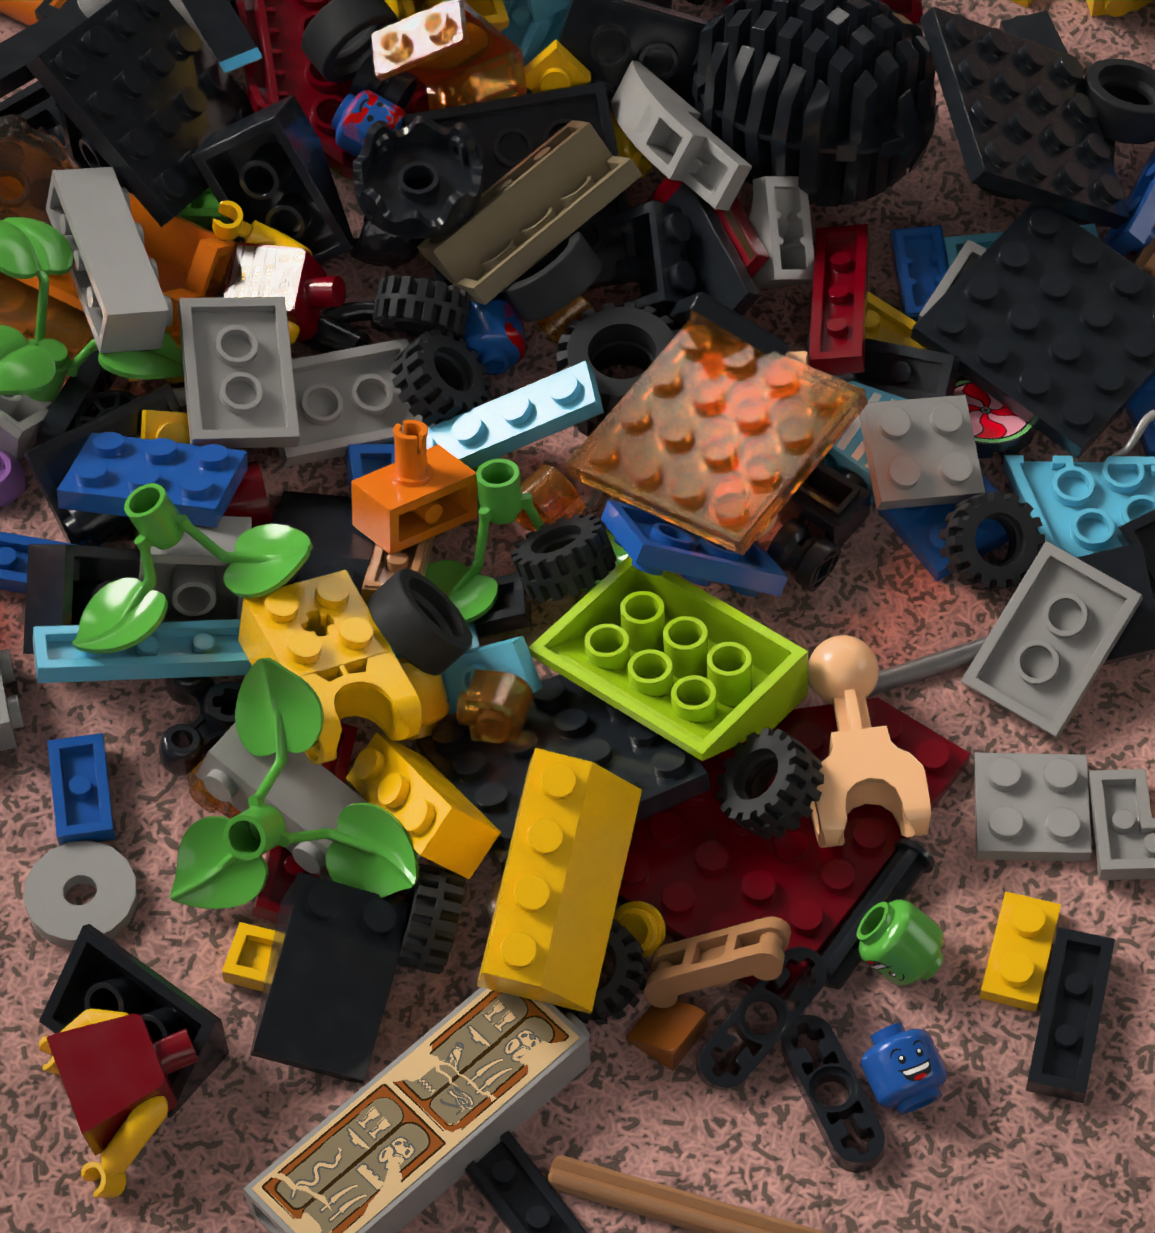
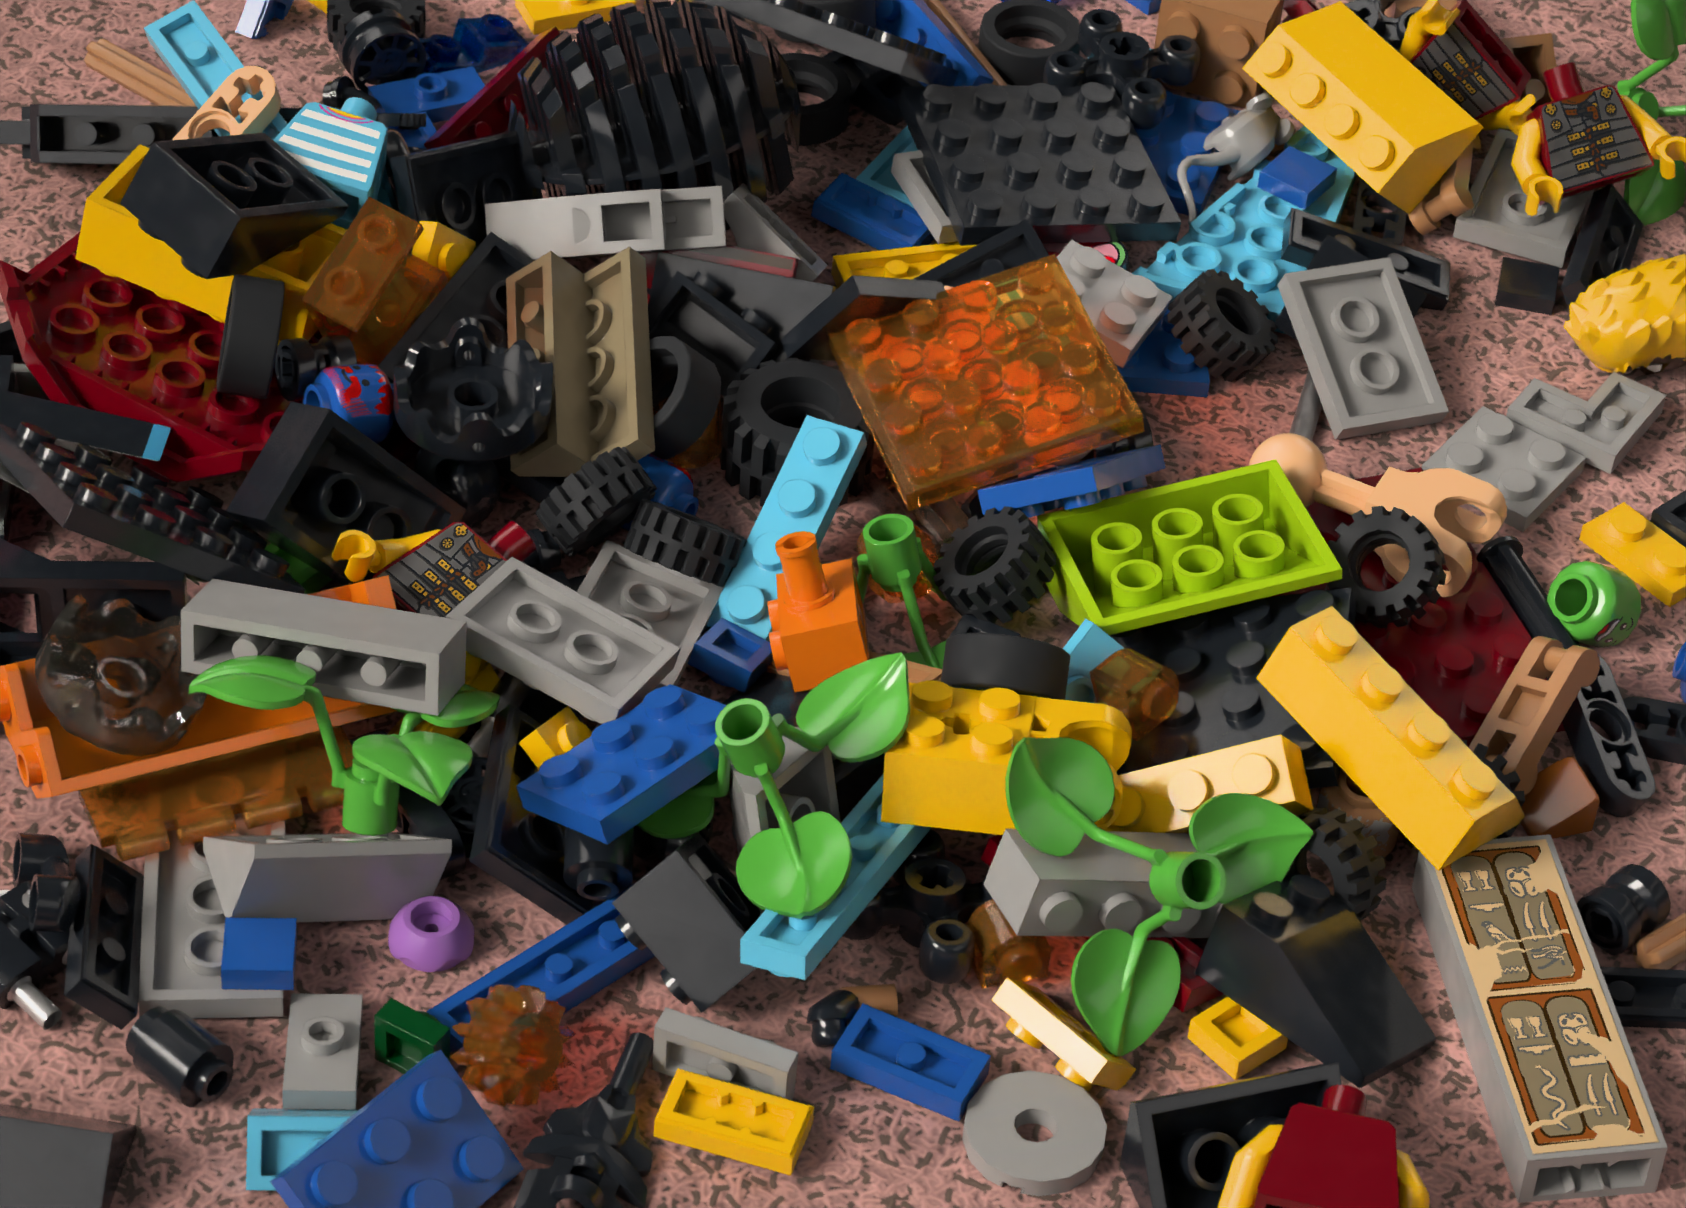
camera: 60 degrees left, 15 degrees down
(114, 729) = (833, 1012): none -> black arm
(159, 856) = (1042, 1021): none -> plate
(579, 1128) = (1623, 909): none -> black wheel
(840, 299) = (878, 250): dark red plate -> none

